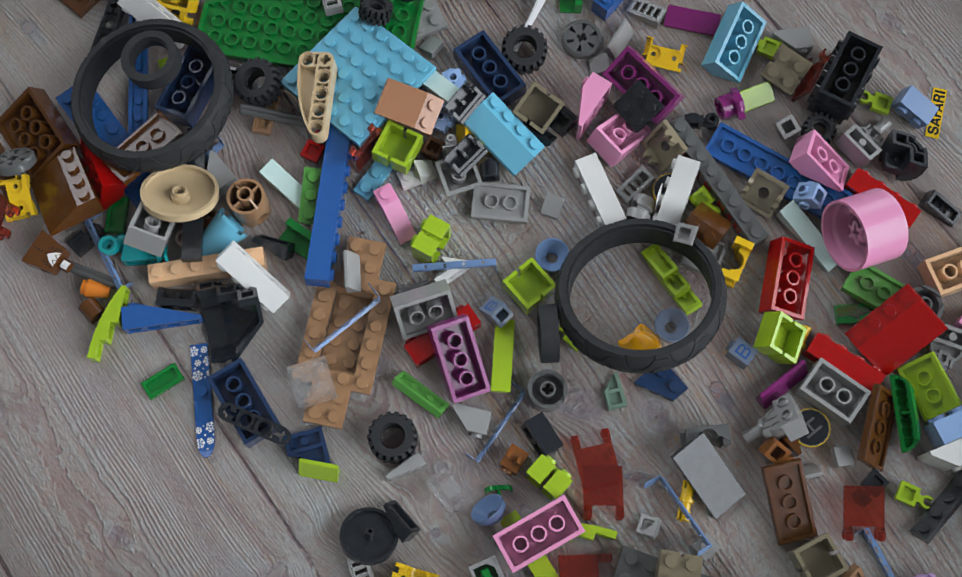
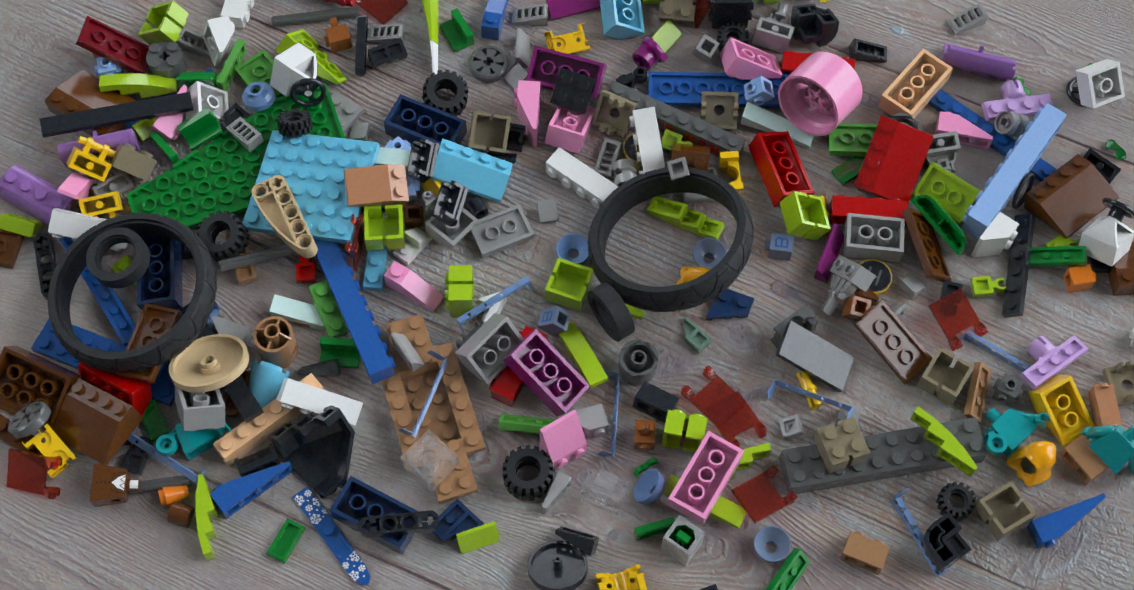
camera: 30 degrees left, 10 degrees down
(437, 428) = (563, 439): none -> bright pink slope
(472, 550) = (653, 529): none -> green tile

